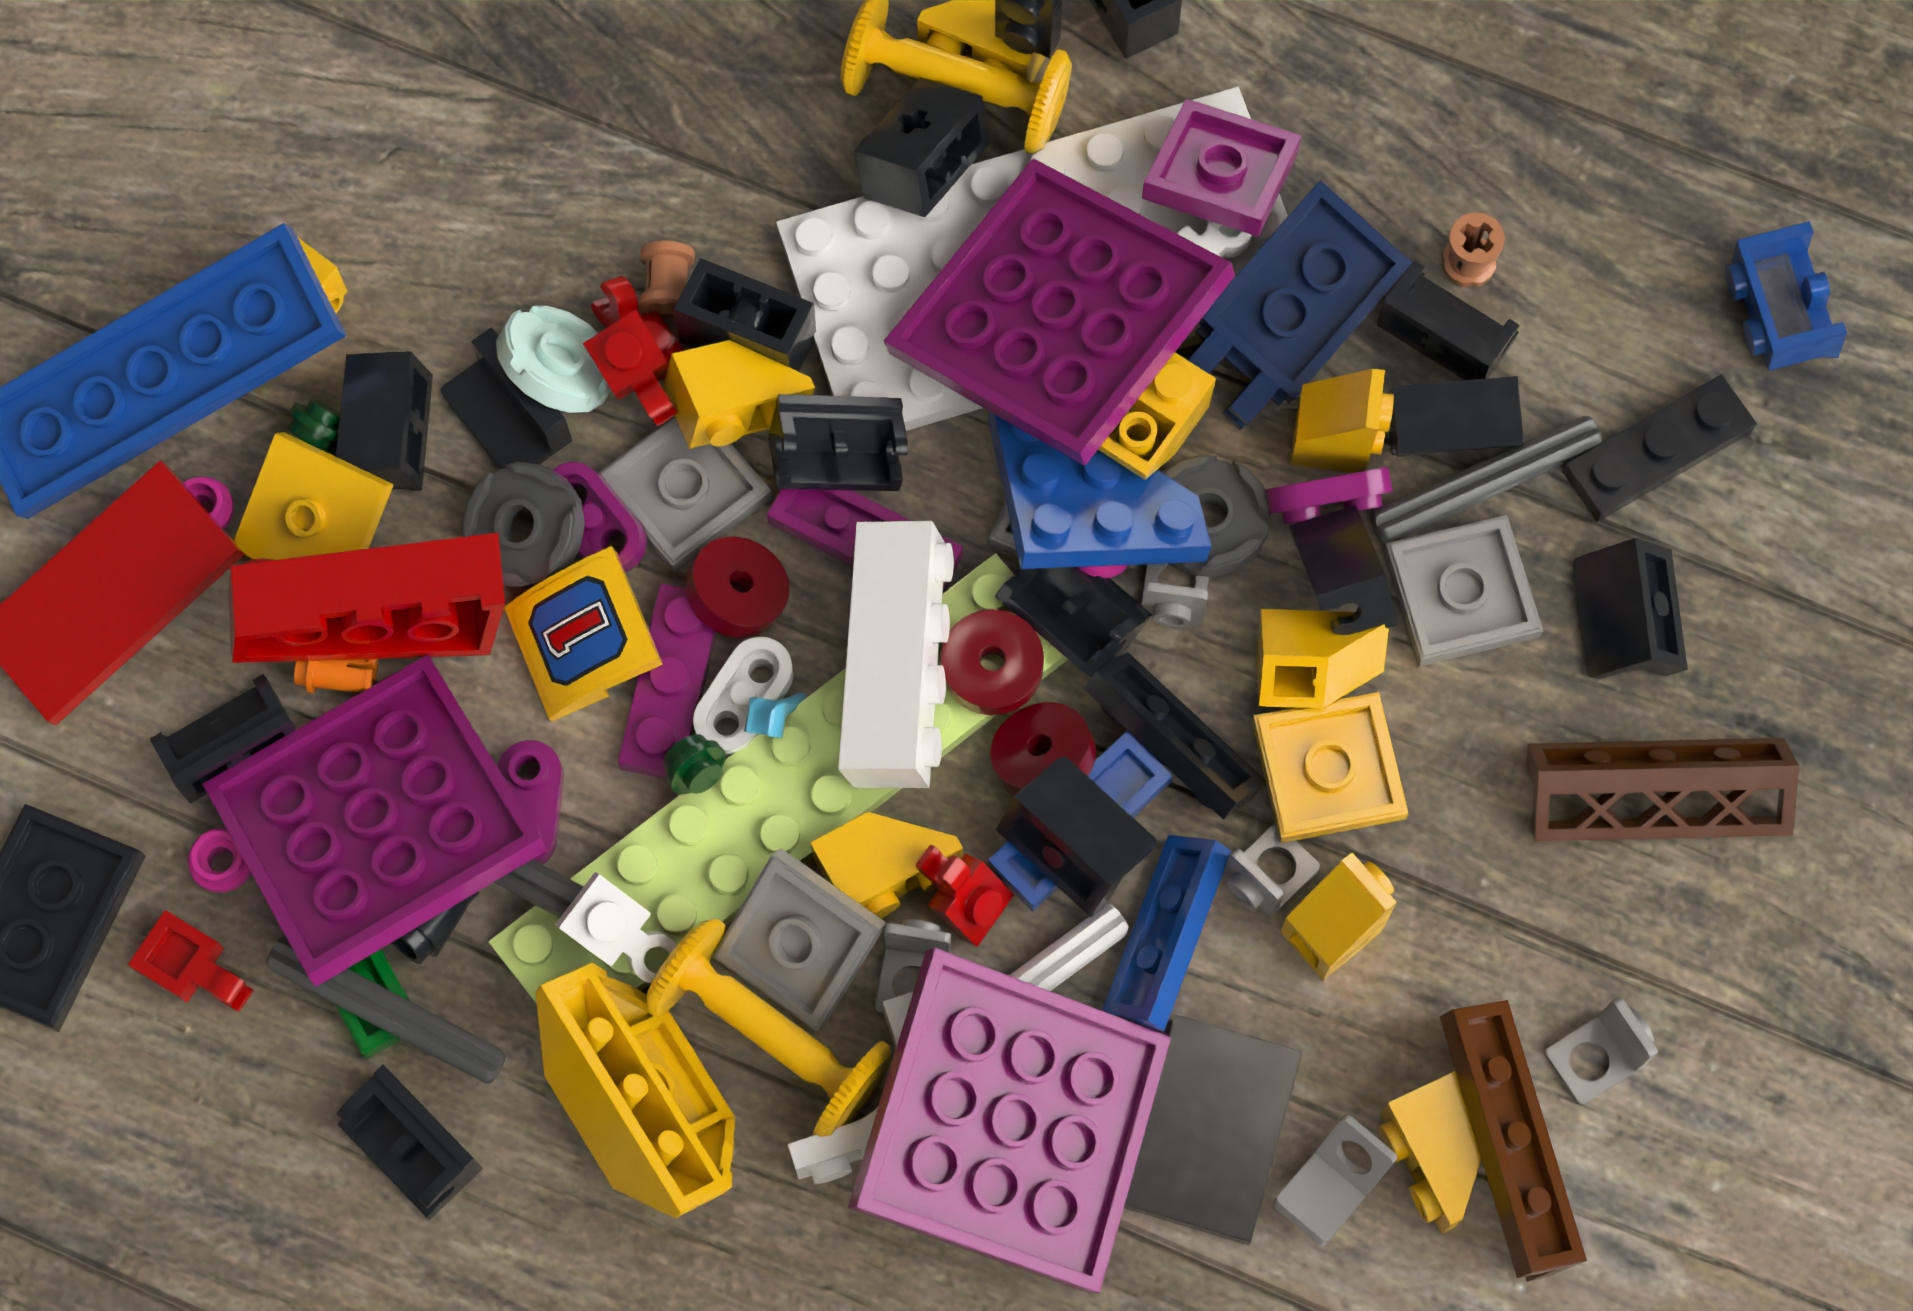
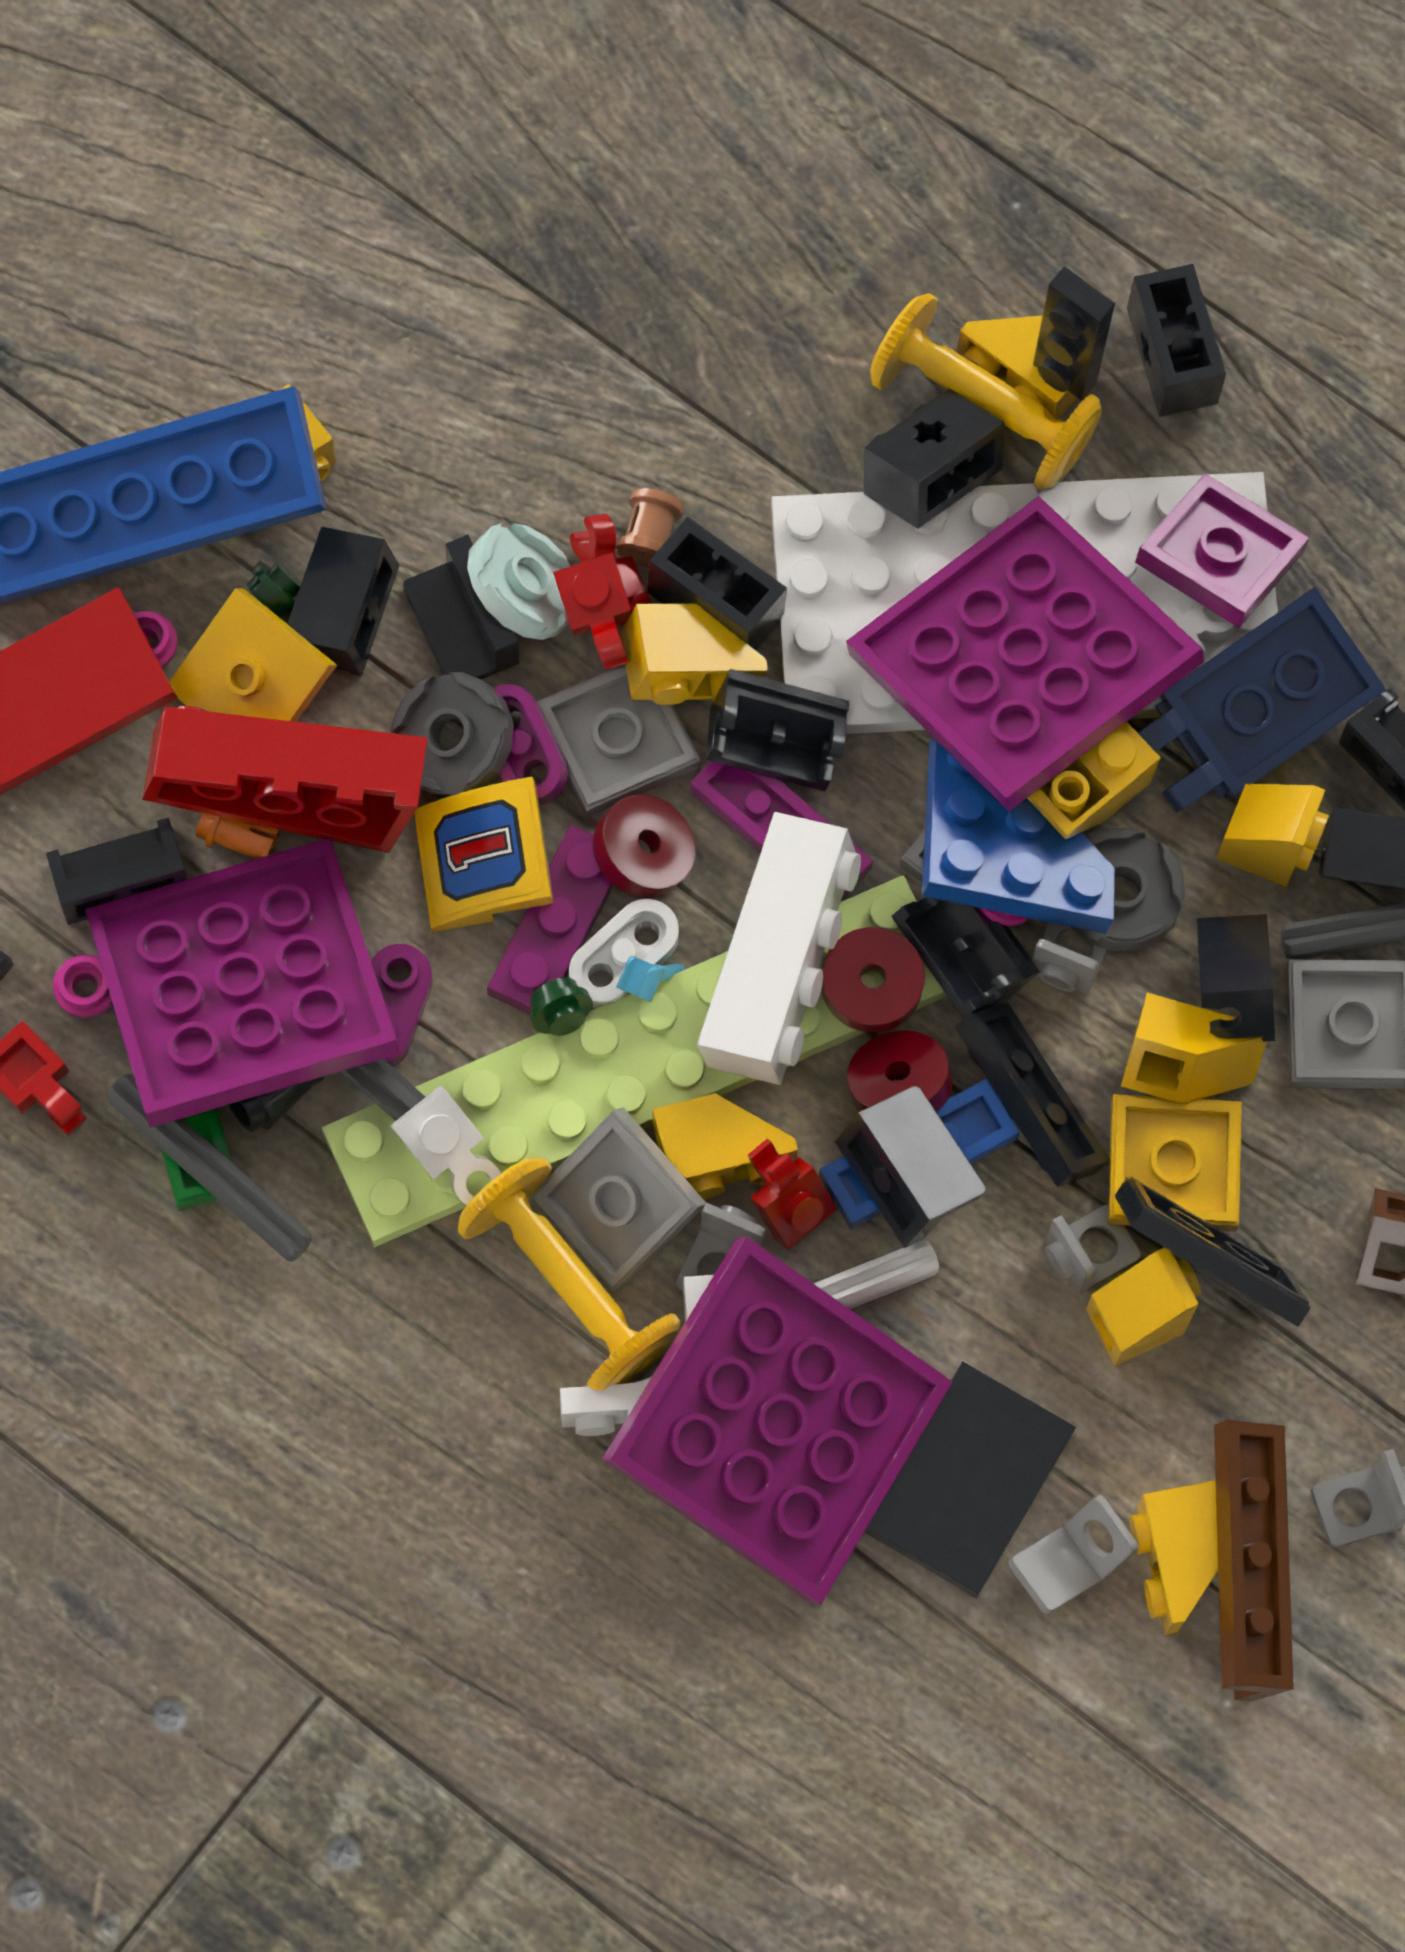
camera: 10 degrees right, 0 degrees up
(407, 1142) = (199, 1297): black hinge -> none
(635, 1092) = (426, 1302): yellow wedge -> none
(1166, 931) = (975, 1279): blue plate -> none
(1302, 500) = (1218, 896): magenta plate -> none
(1393, 845) = (1212, 1250): none -> black tile

